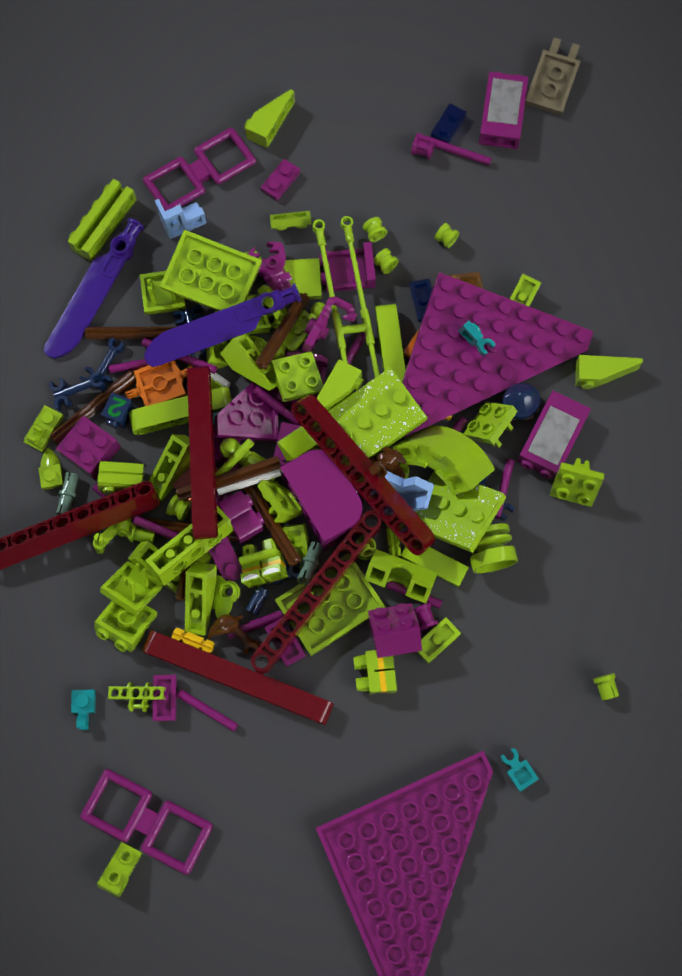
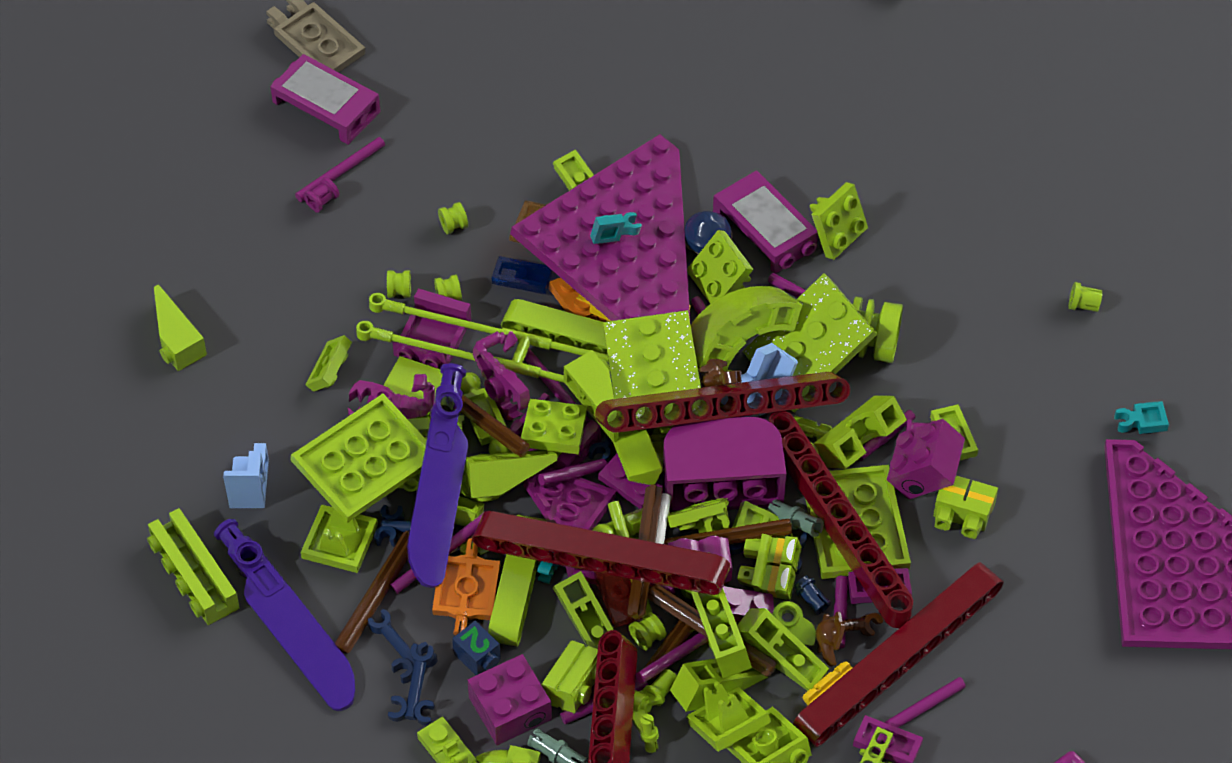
camera: 65 degrees left, 20 degrees down
(94, 406) = (452, 679): reddish brown axle -> none
(131, 365) = (419, 615): magenta piece -> none
(200, 170) = (191, 434): magenta bar -> none
(280, 180) = (263, 356): magenta plate -> none
(446, 567) = (876, 383): lime tile -> none
(448, 123) = (303, 159): clear blue plate -> none
(598, 370) = (708, 151): lime slope -> none

